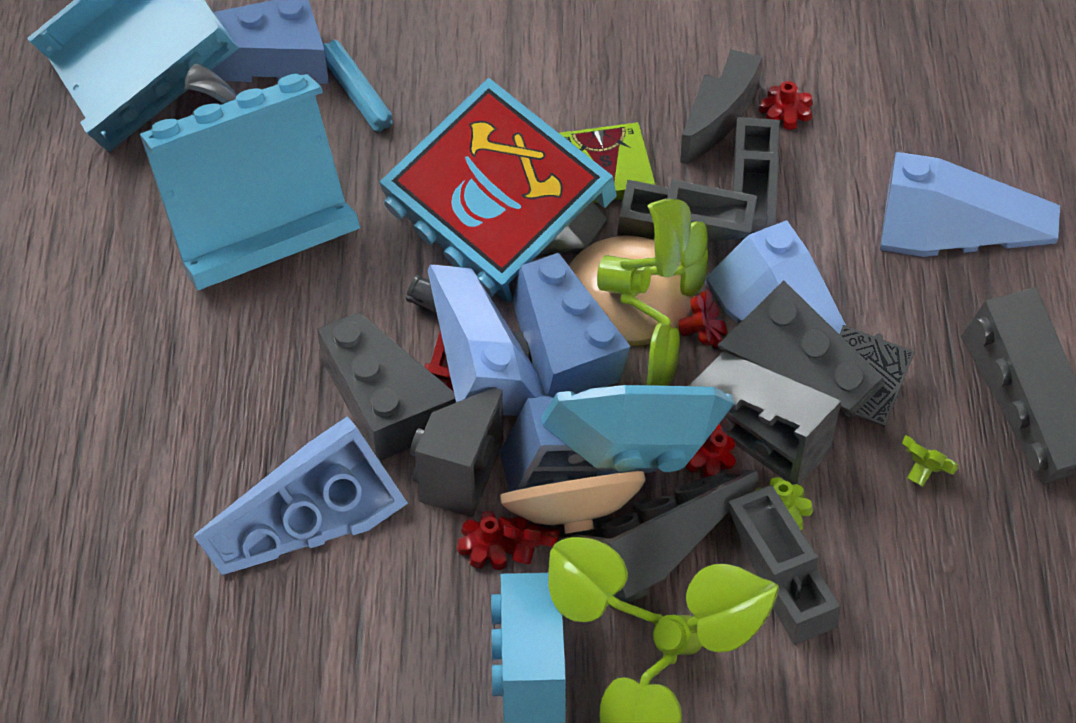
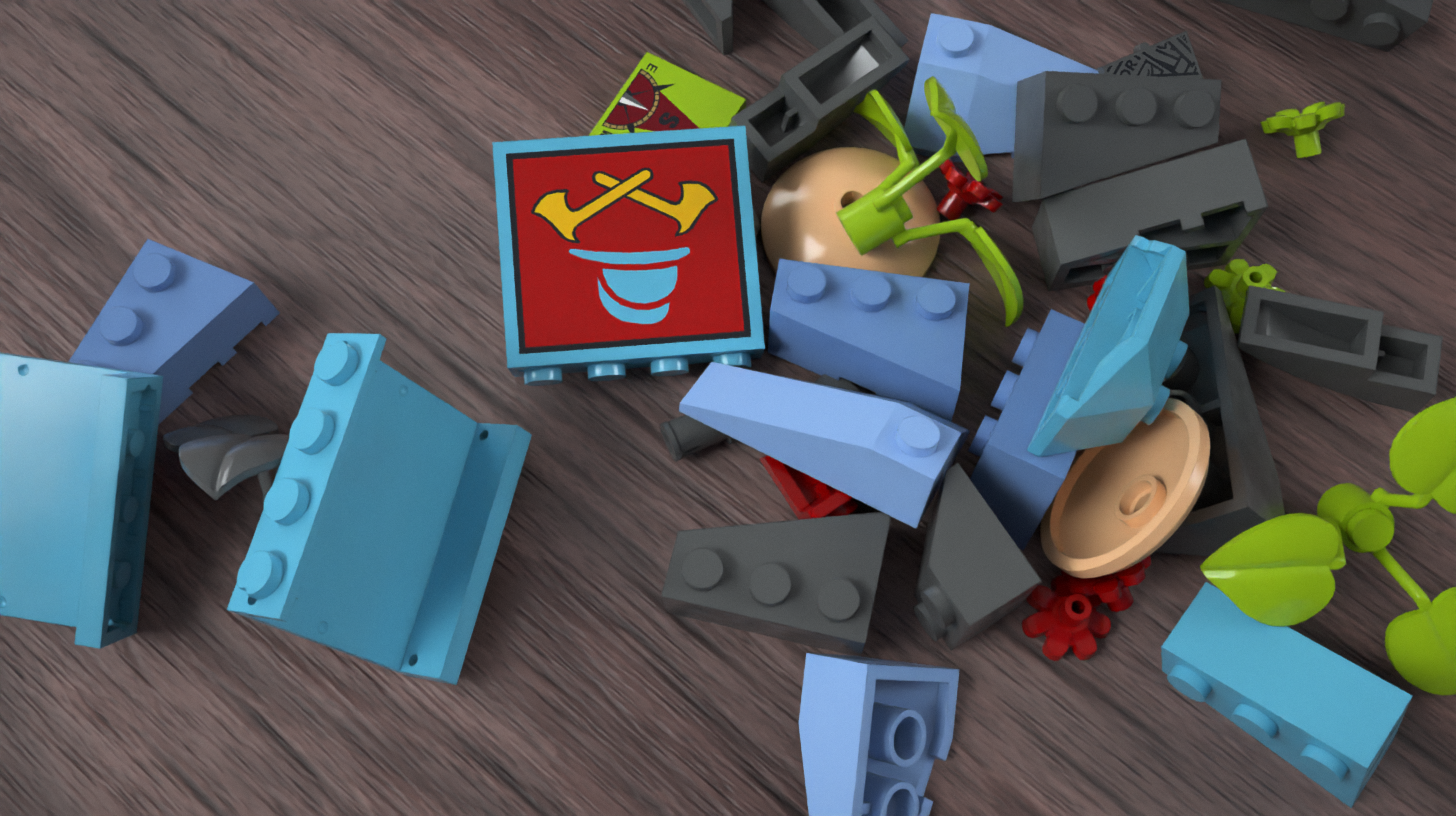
camera: 45 degrees left, 15 degrees up
(357, 86) = (323, 286): medium azure axle -> none

